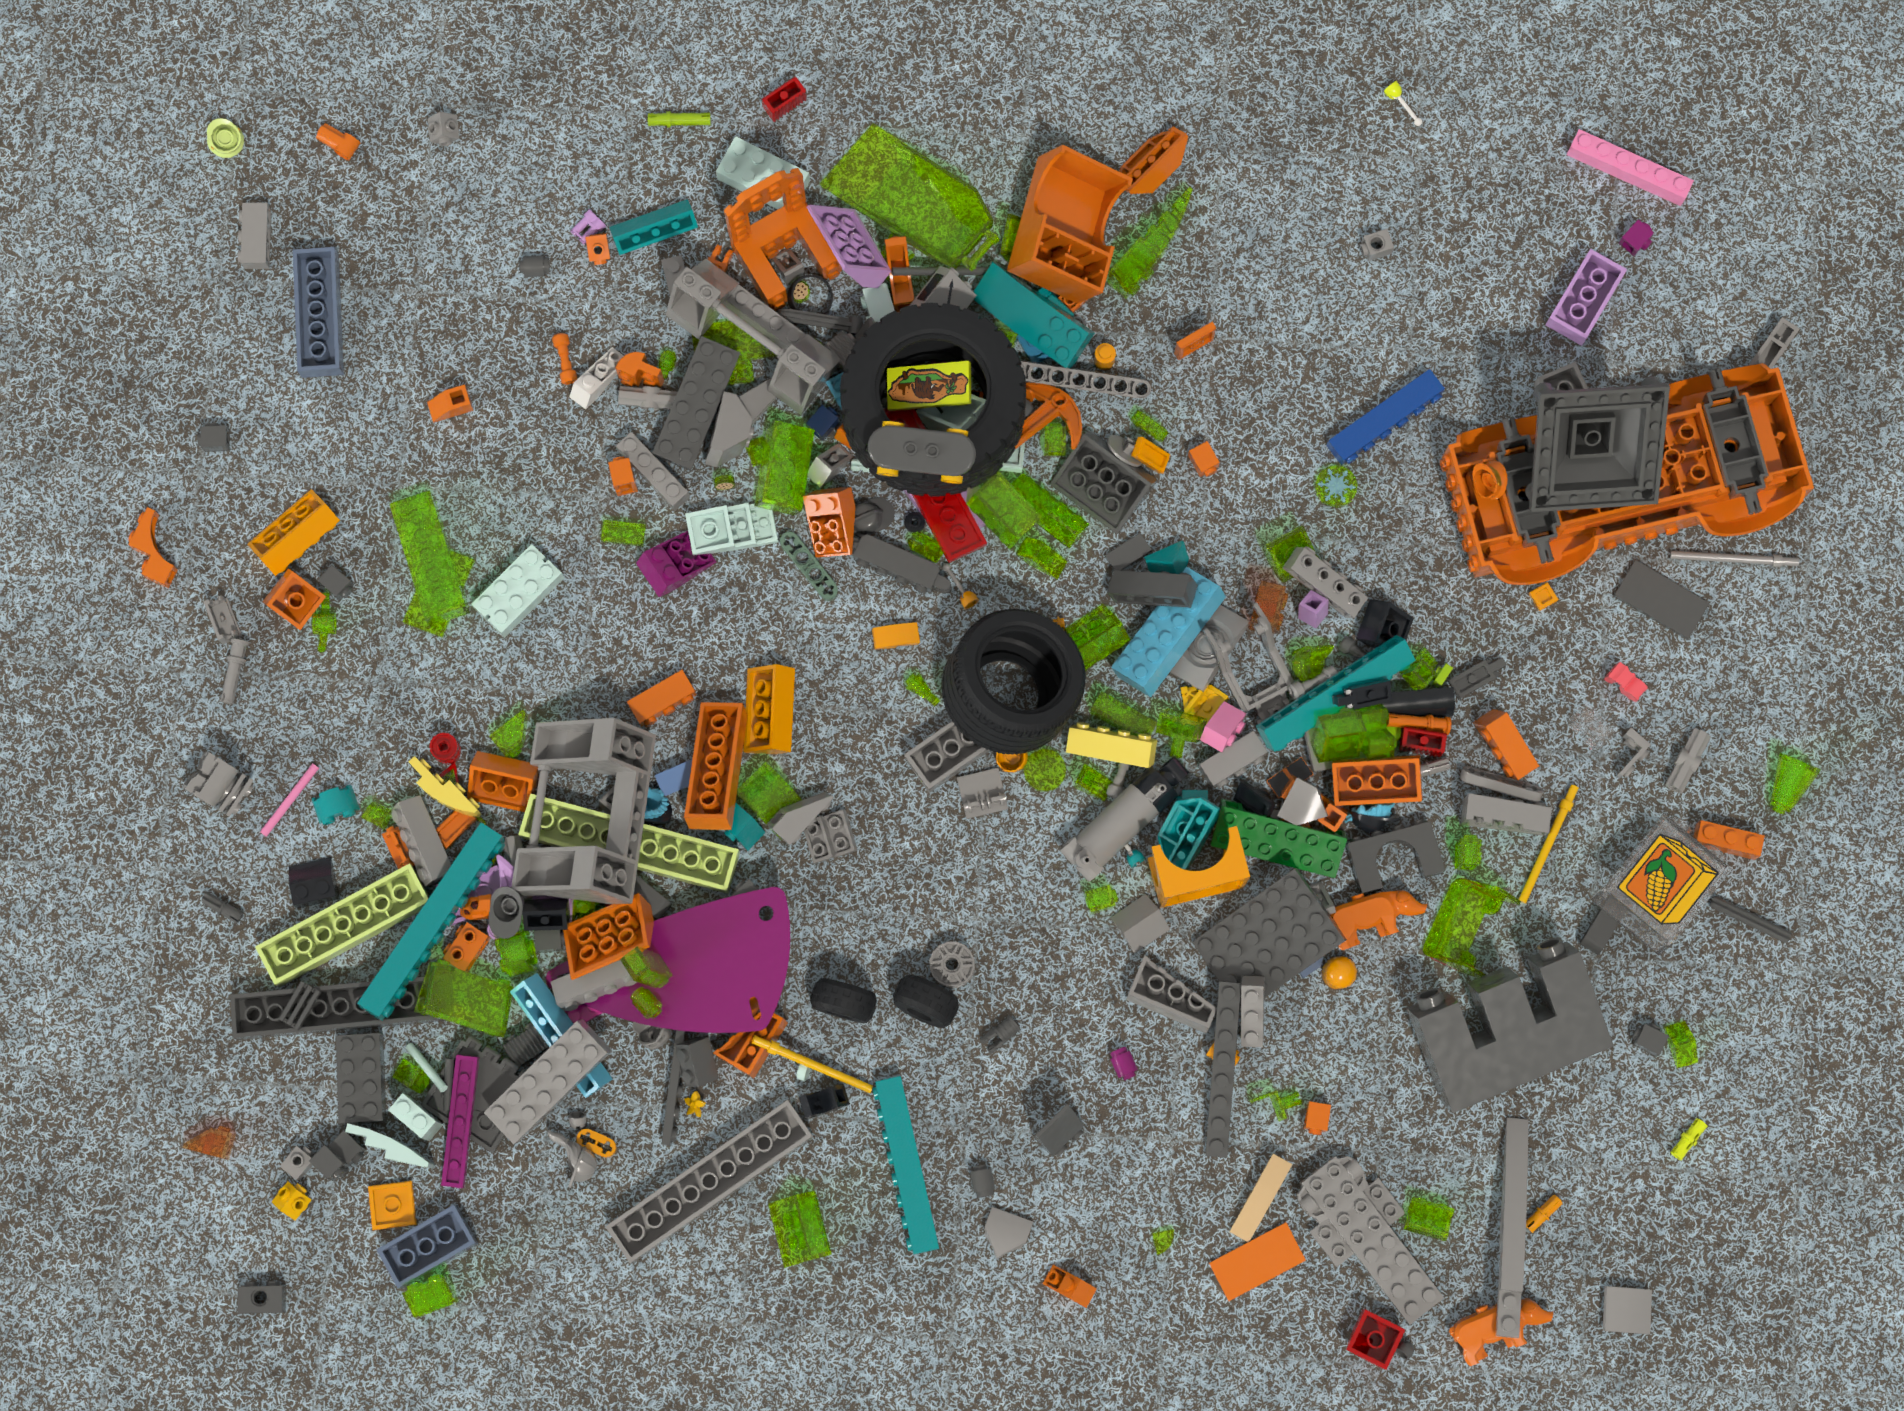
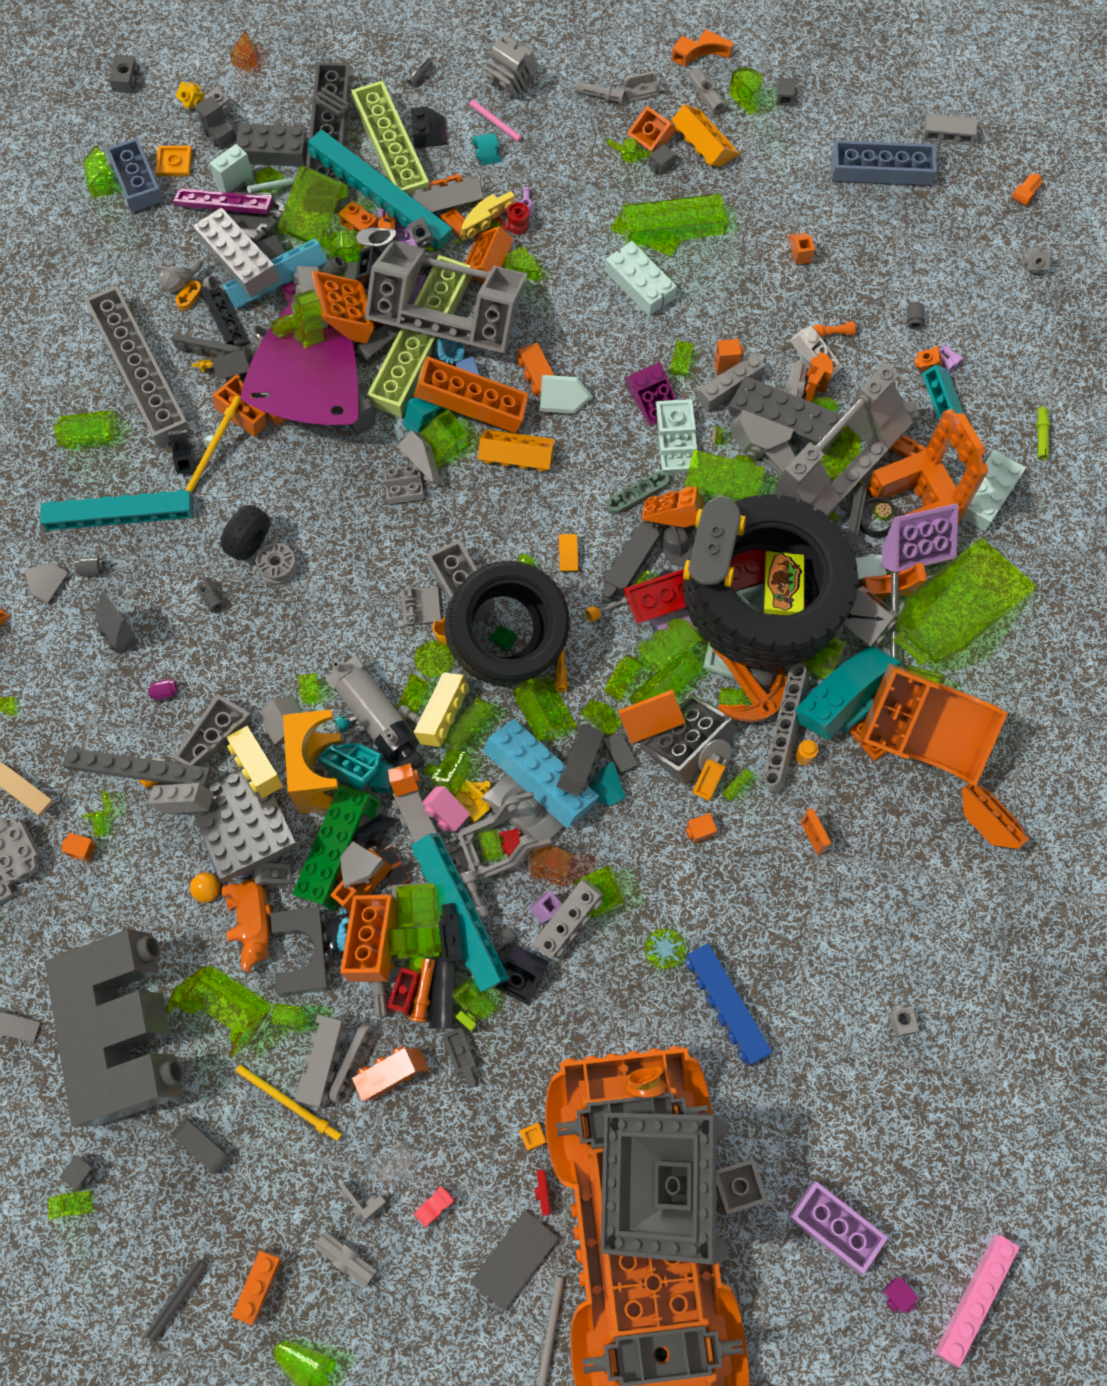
camera: 95 degrees right, 10 degrees down
(208, 544) = (707, 90): none -> light grey piece
(221, 483) = (746, 88): none -> clear neon green brick
(224, 138) = (1032, 116): yellowish green piece -> none
(377, 815) = (473, 168): clear neon green brick -> none
(394, 1149) = (219, 143): light aqua slope -> none
(408, 745) = (526, 200): none -> lavender bar
(490, 858) = (418, 226): none -> dark grey brick
(546, 964) = (334, 266): none -> dark grey brick
(628, 1098) = (219, 319): none -> black fence
(693, 664) = (562, 394): none -> light aqua tile
(784, 99) = (1060, 513): red brick -> none
(788, 266) = (905, 502): light grey slope -> none
(843, 1000) = (259, 471): black tyre -> none
(1009, 694) = (503, 637): none -> green slope
(1089, 520) = (651, 716): none -> orange tile
(1089, 579) = (601, 716): none -> clear neon green slope
(1146, 252) = (901, 797): clear neon green wedge -> none
(1199, 773) = (403, 779): none -> orange brick
(1200, 939) = (255, 763): none -> light yellow brick
(1249, 654) = (510, 839): none -> red brick
(1253, 676) = (490, 845): none -> clear neon green brick
(1310, 660) = (496, 896): clear neon green hair -> none
(1394, 92) = (1063, 1062): hinge -> none
(1597, 579) = (541, 1192): none -> red plate
(1662, 883) = (223, 1208): brick -> none

